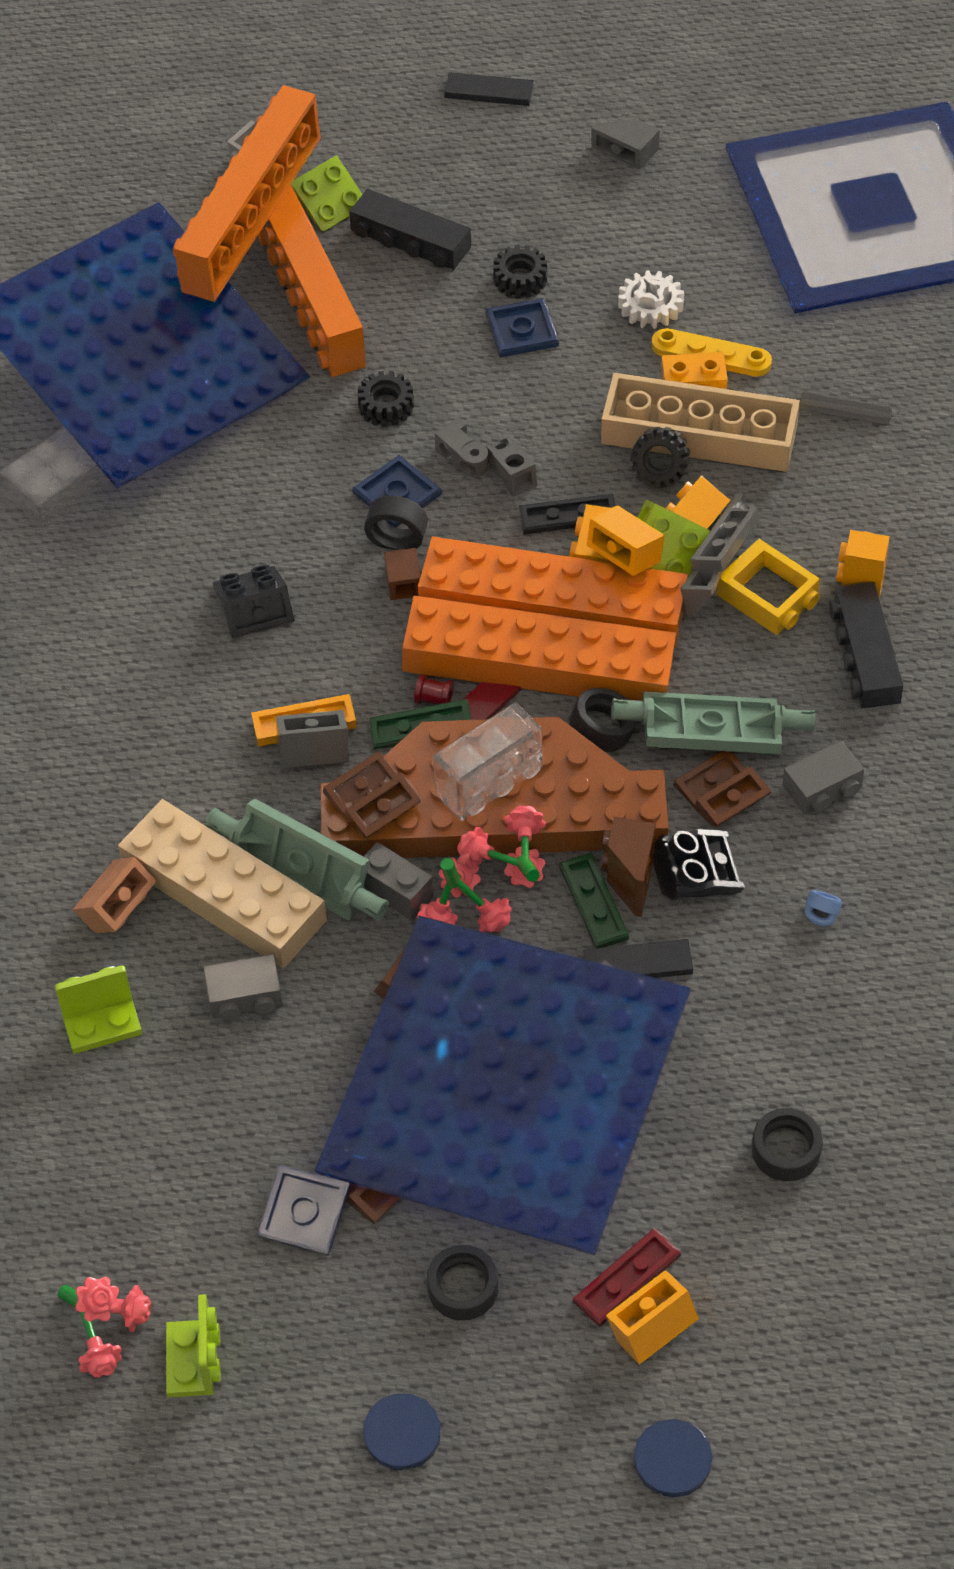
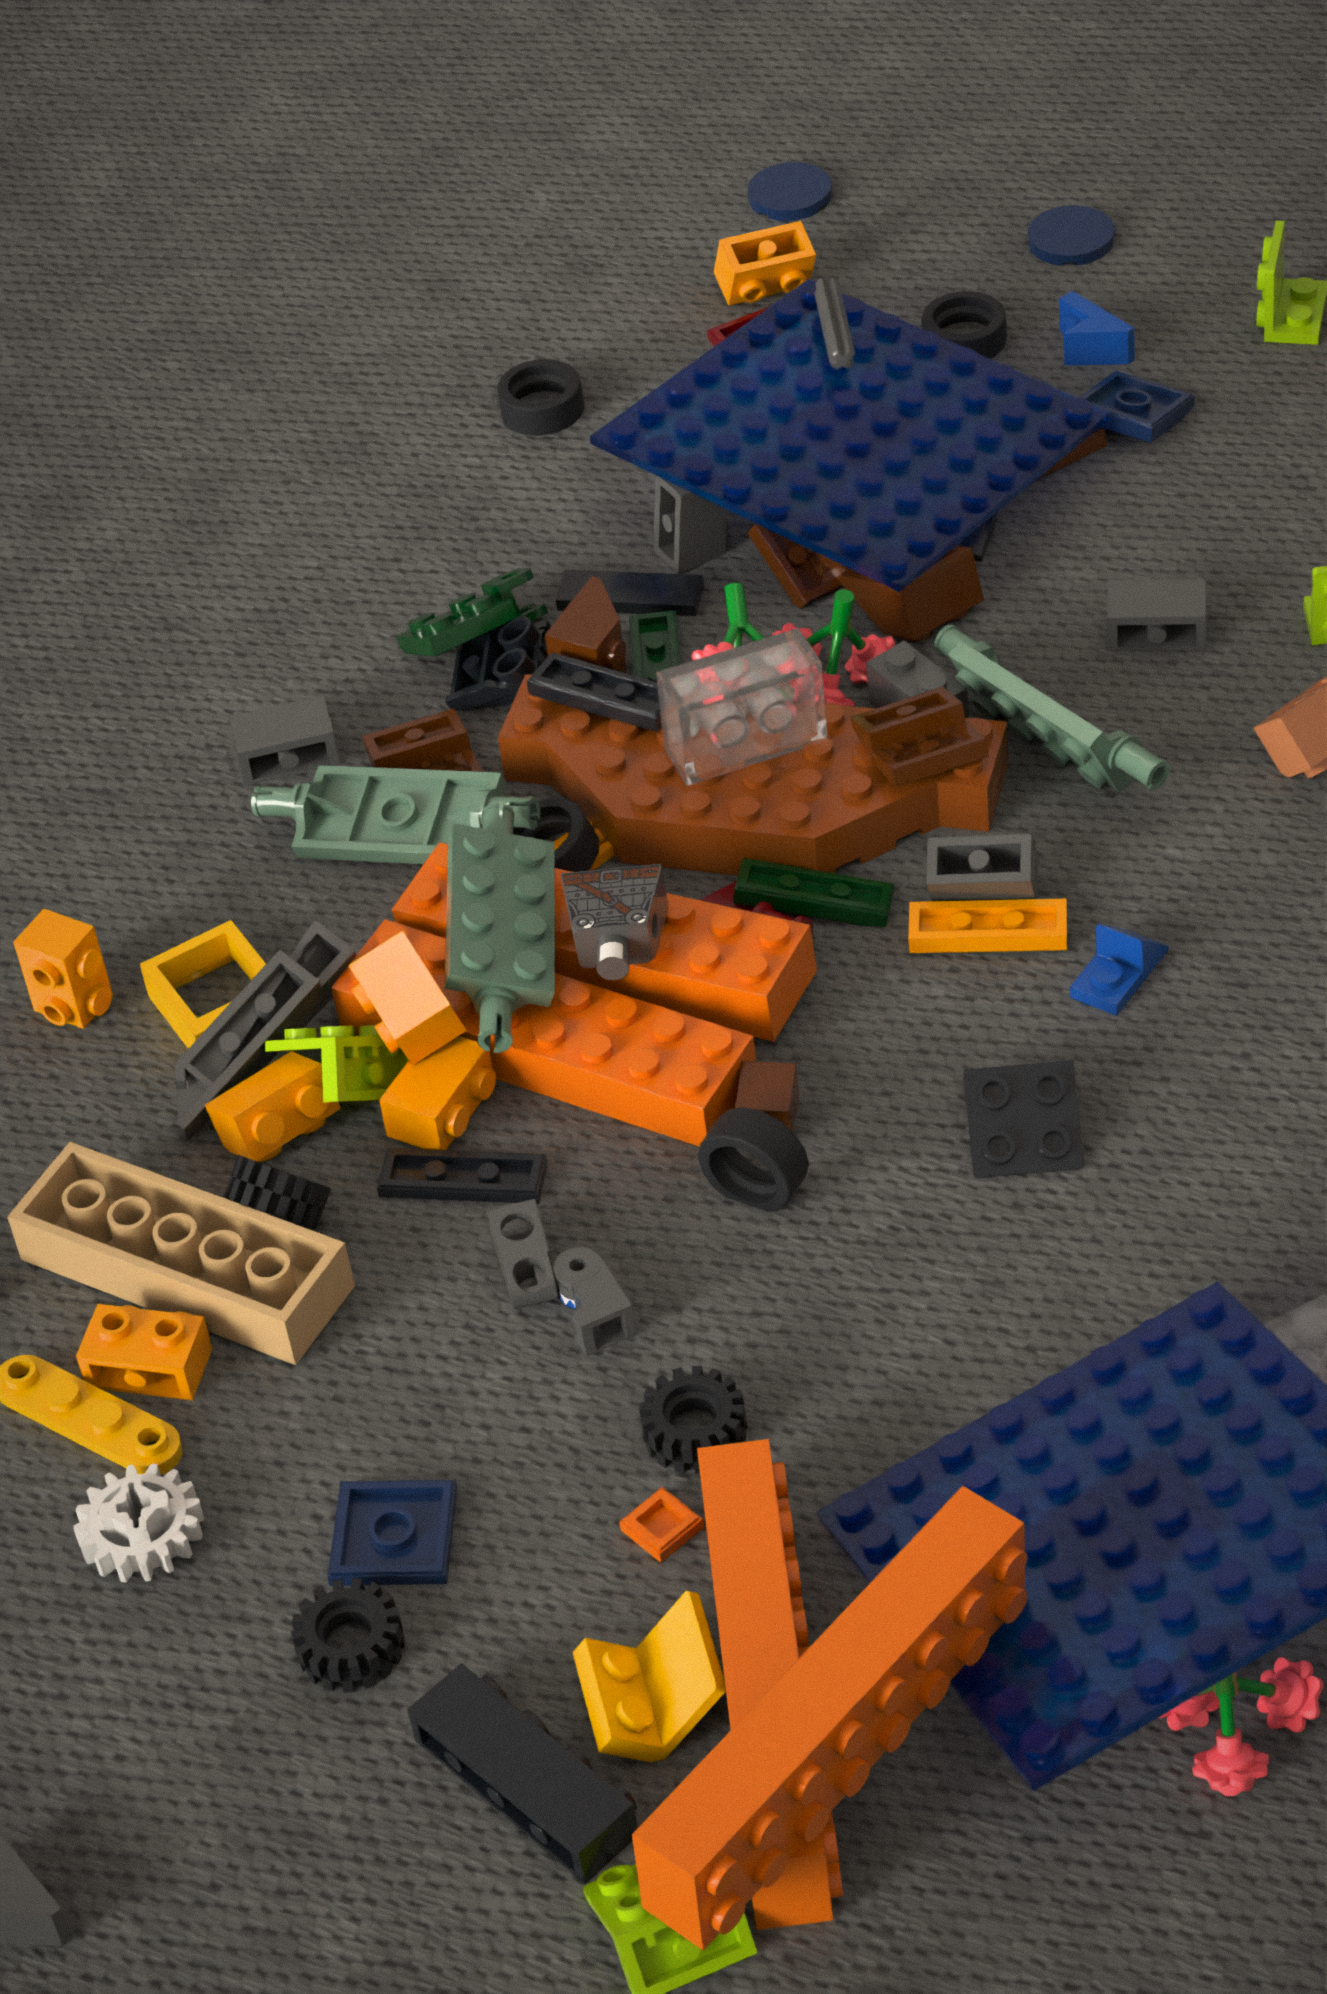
camera: 160 degrees left, 10 degrees down
(215, 710) = (1117, 968): none -> blue slope
(225, 883) = (1221, 763): tan brick -> none
(345, 1280) = (1093, 334): none -> blue slope
(366, 267) = (655, 1693): none -> yellow bracket
(386, 355) = (661, 1524): none -> orange tile
(397, 479) = (729, 1263): dark blue tile -> none
(520, 607) = (616, 916): none -> torso
(547, 1169) = (834, 323): none -> dark grey axle
(593, 603) = (500, 922): none -> sand green plate
(598, 800) = (597, 691): none -> black tile
(726, 904) = (469, 616): none -> dark green plate
(823, 902) = (365, 609): medium blue tile -> none
(867, 645) = (127, 885): black brick -> none

